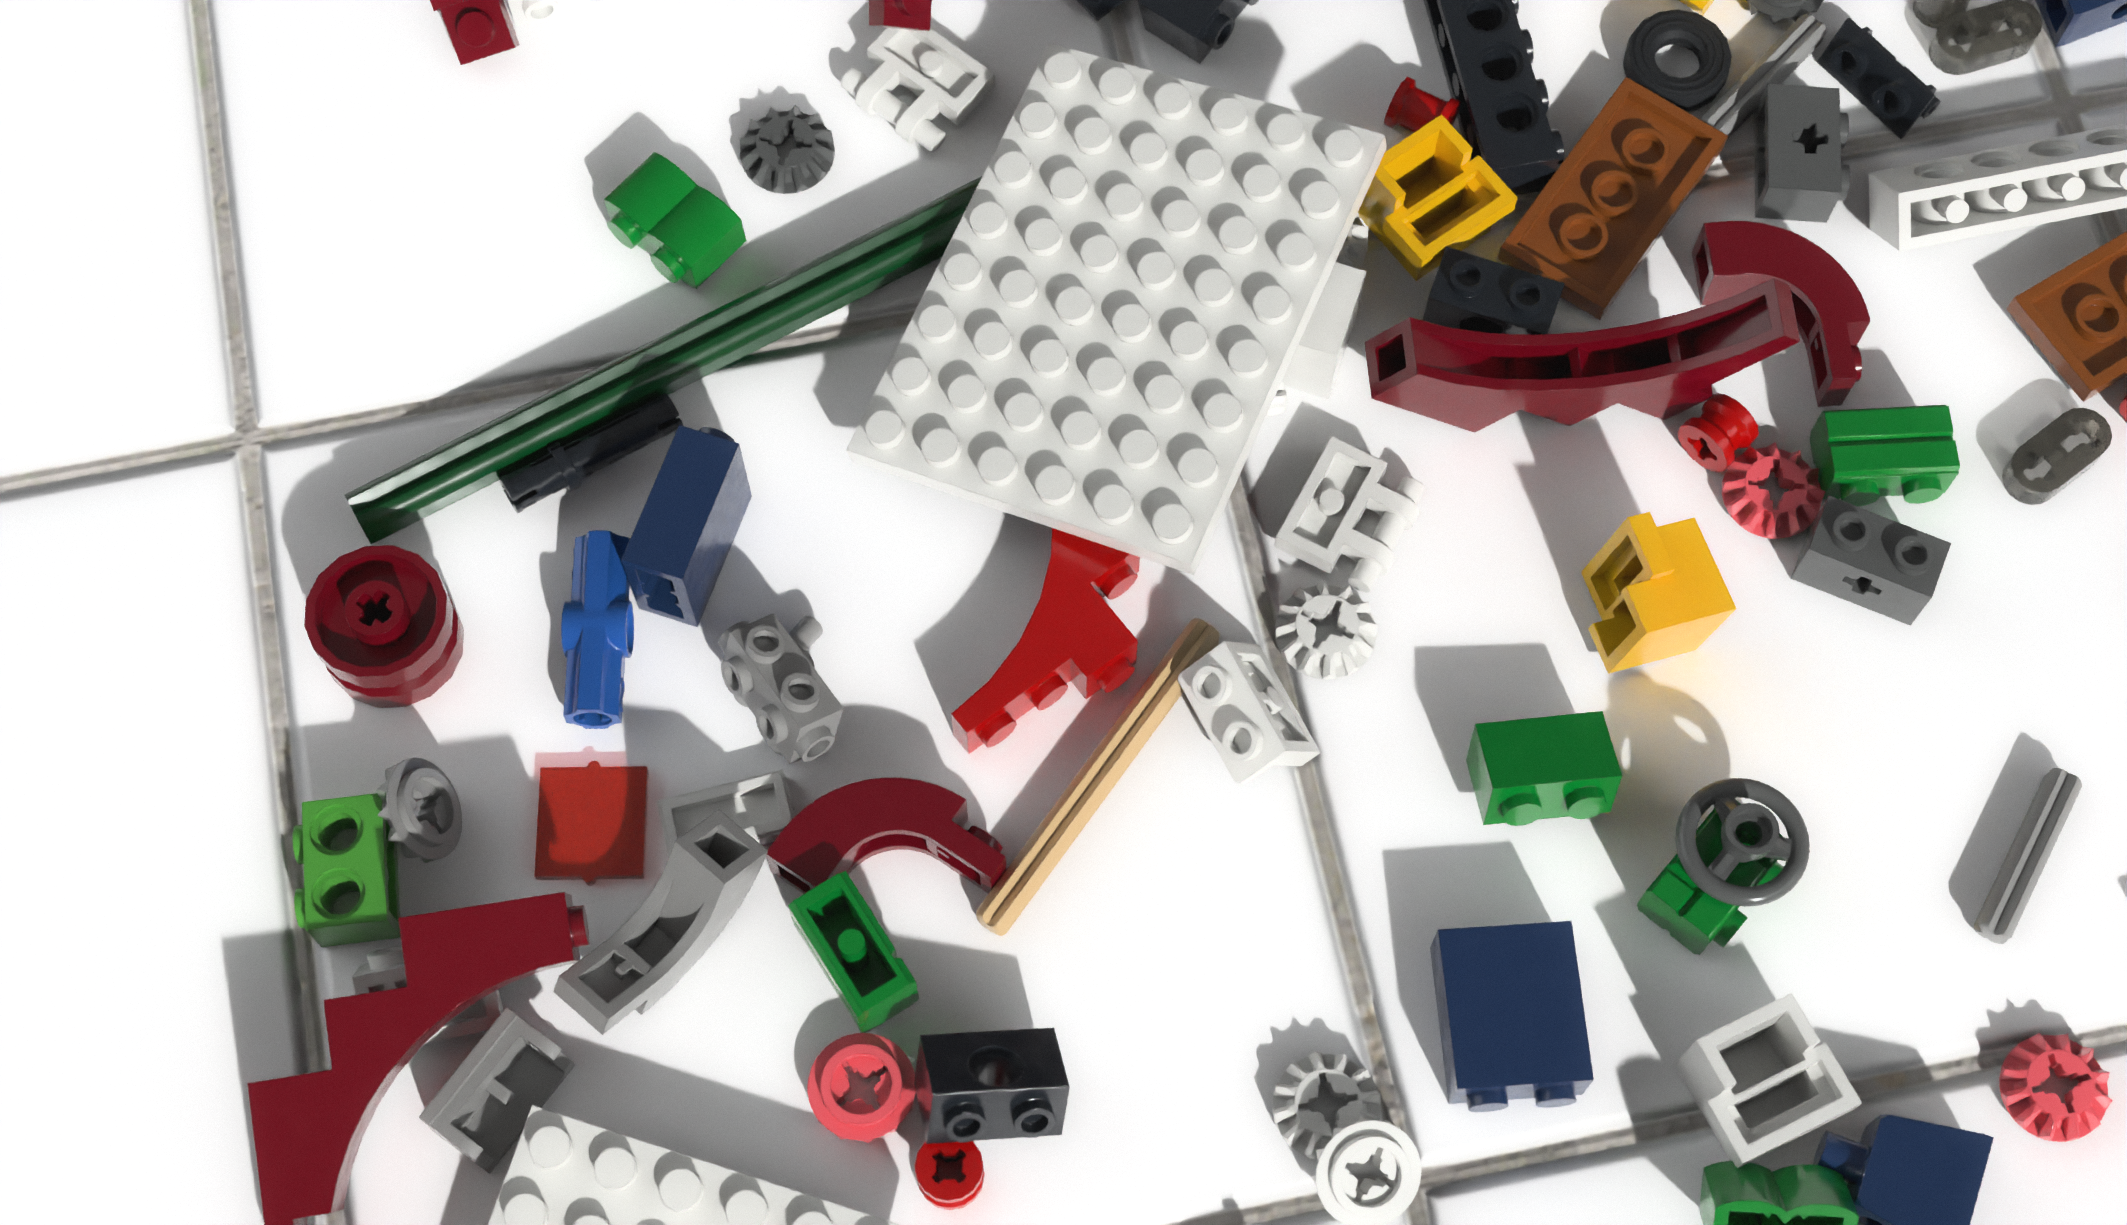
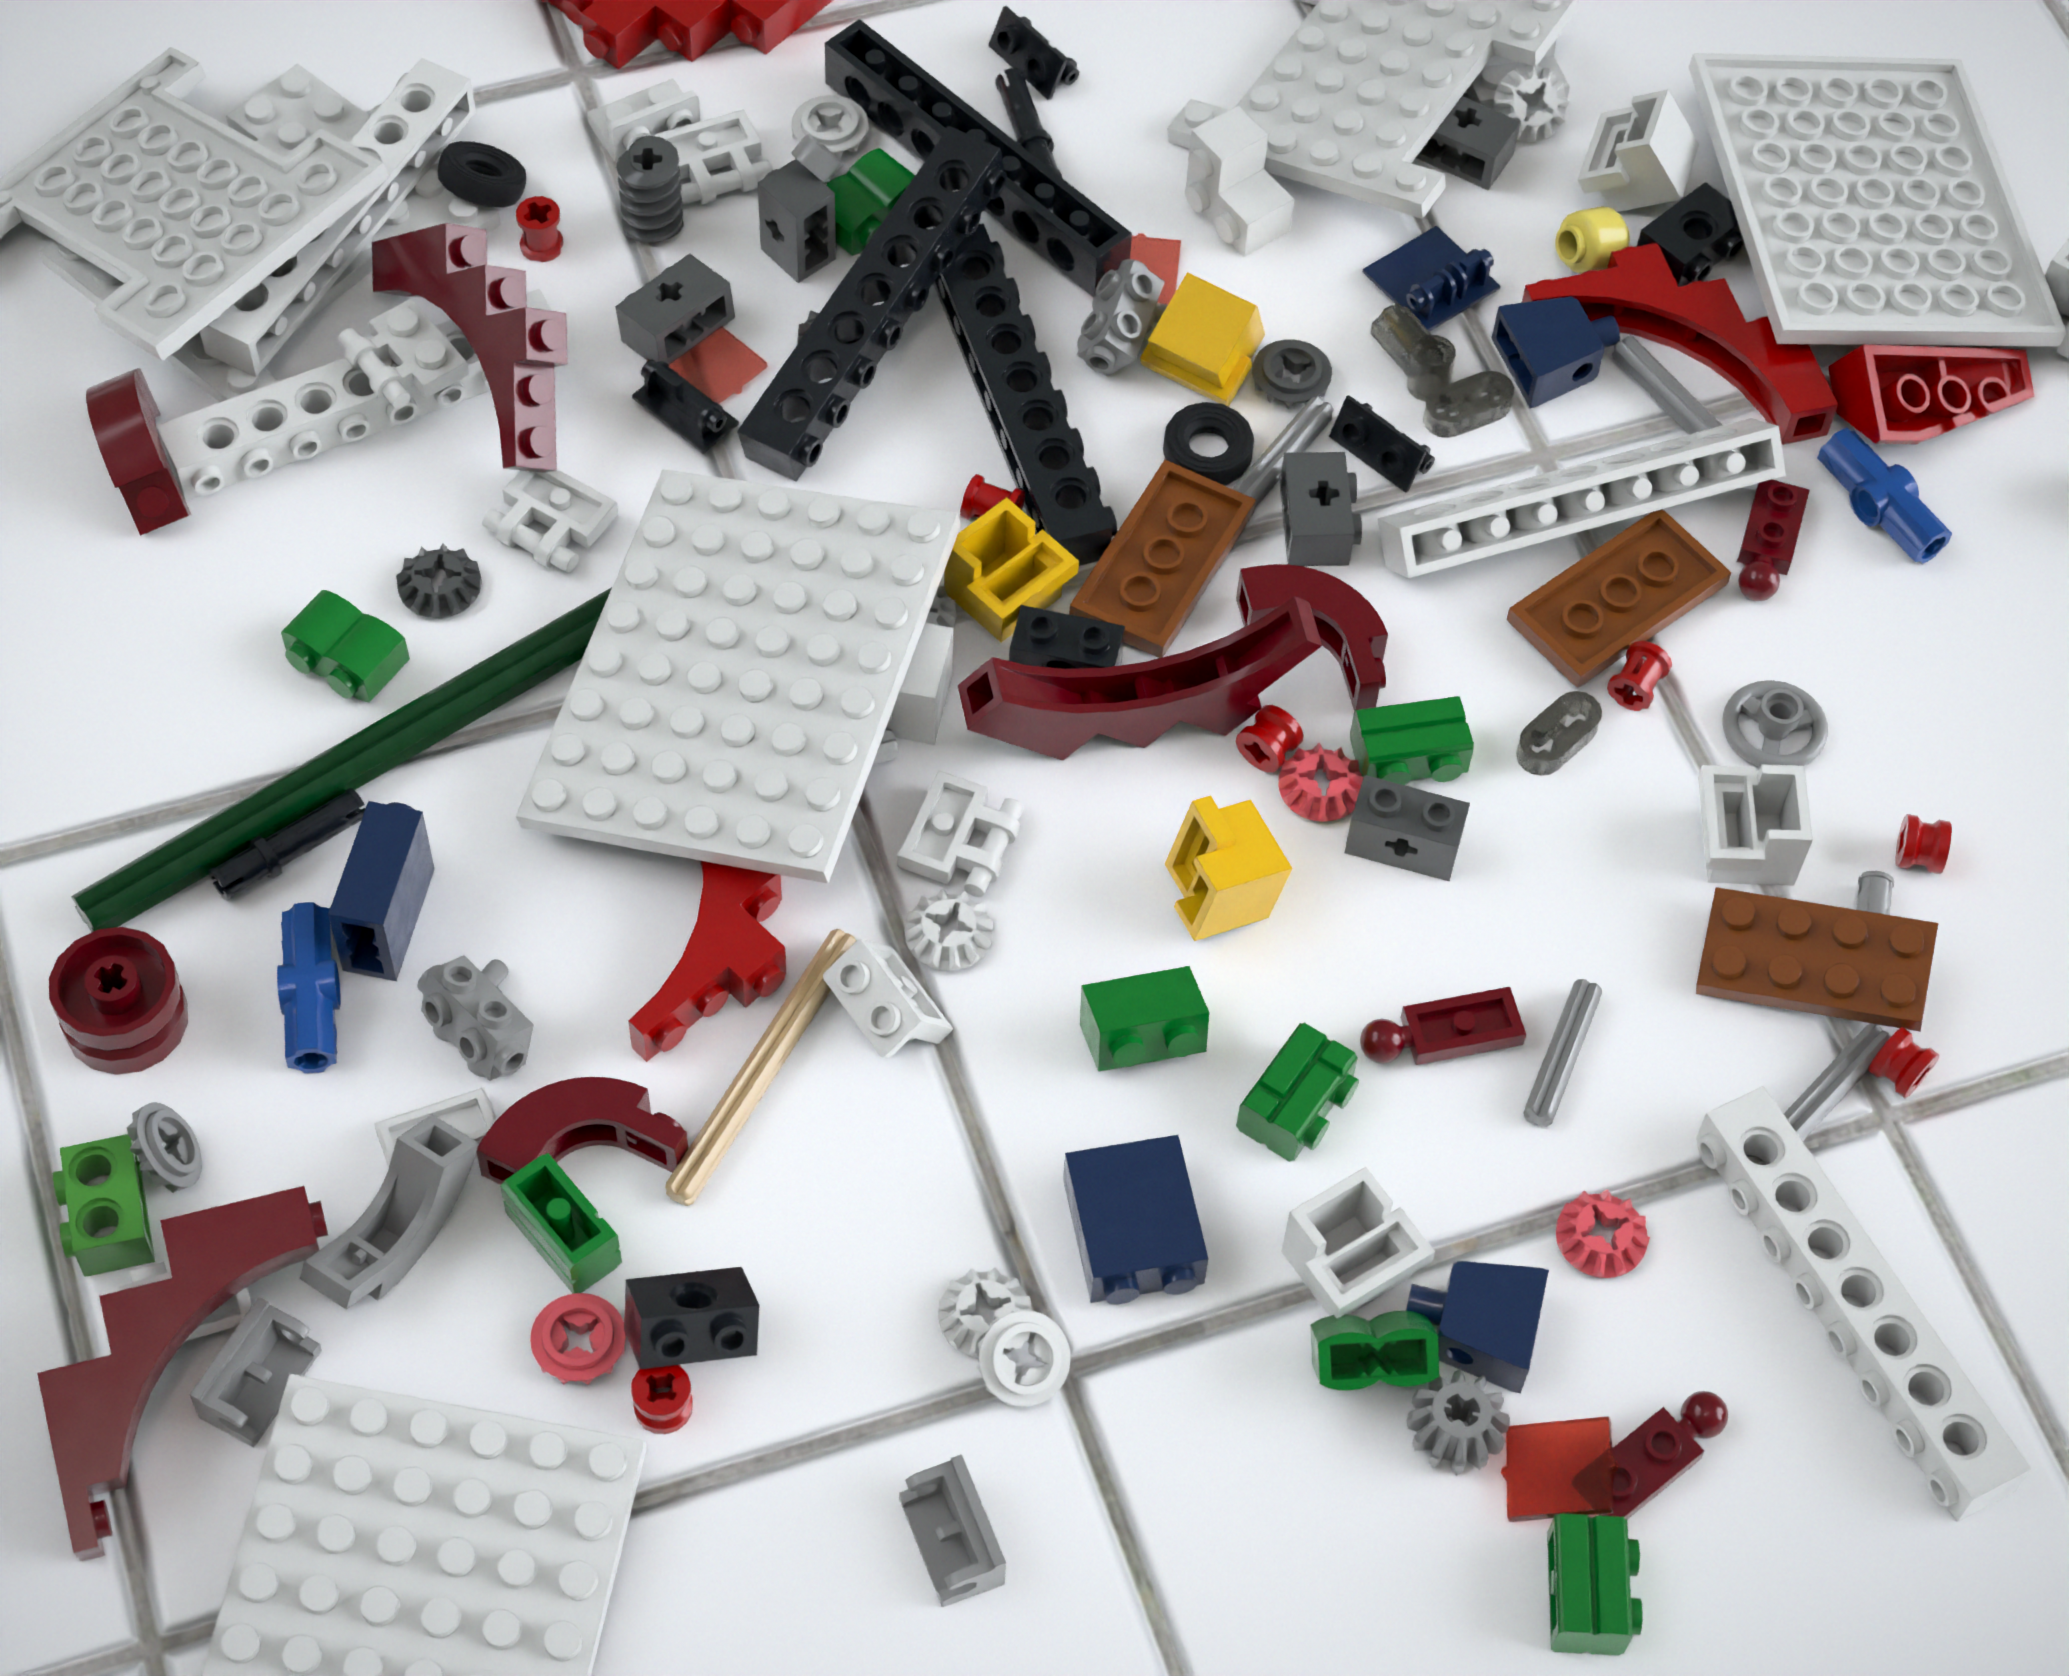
camera: 10 degrees left, 10 degrees down
(591, 823) = (319, 1147): clear red piece -> none
(1759, 824) = (1317, 1028): dark grey piece -> none
(1899, 812) = (1447, 1028): none -> dark red plate

